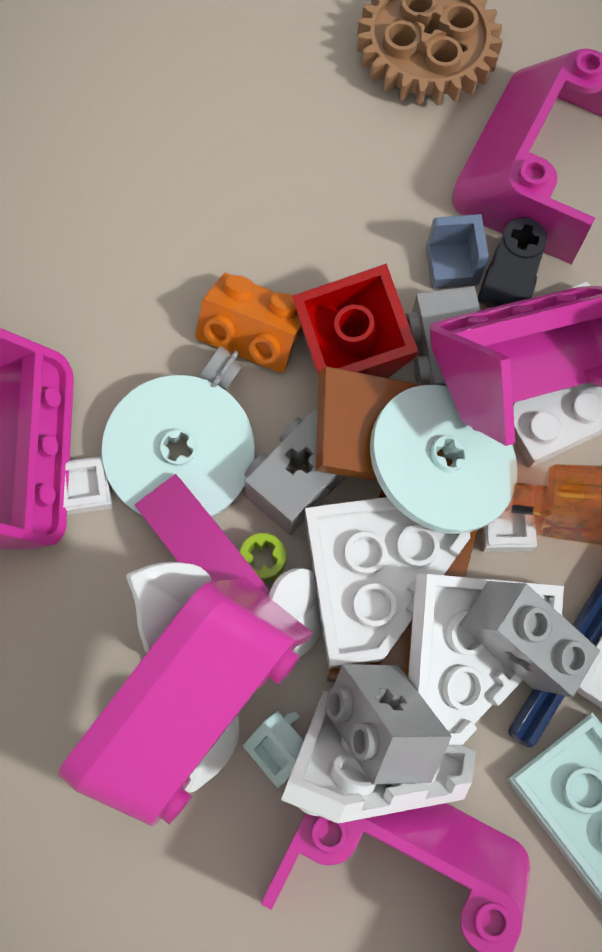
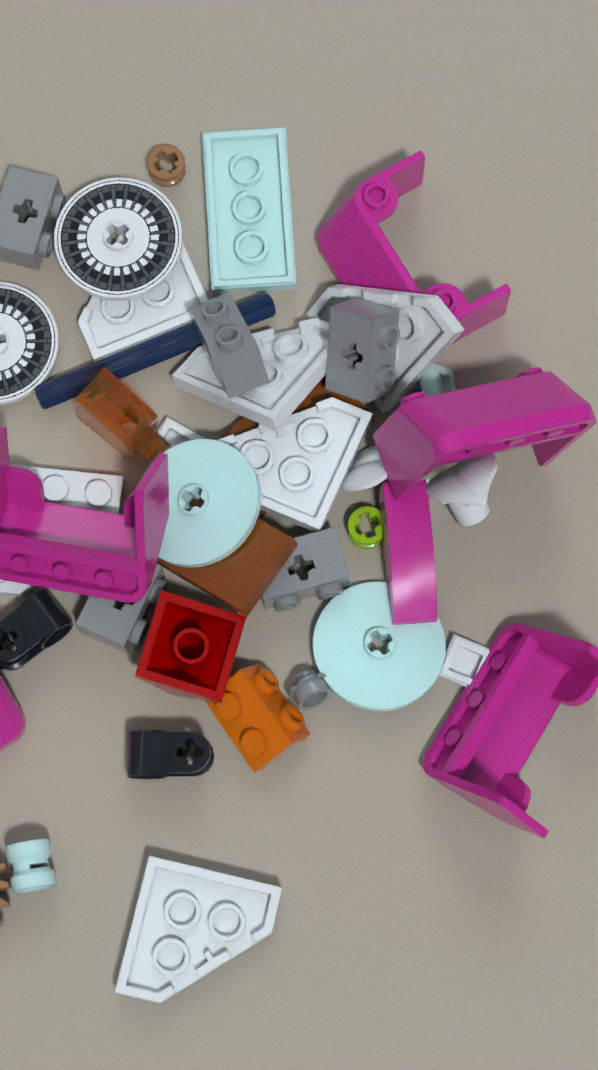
camera: 140 degrees left, 5 degrees up
(197, 126) = (190, 926): none -> white plate
(311, 239) = (159, 753): none -> black piece
(365, 93) = (30, 855): none -> light aqua wheel
(456, 251) = (61, 672): sand blue panel -> none

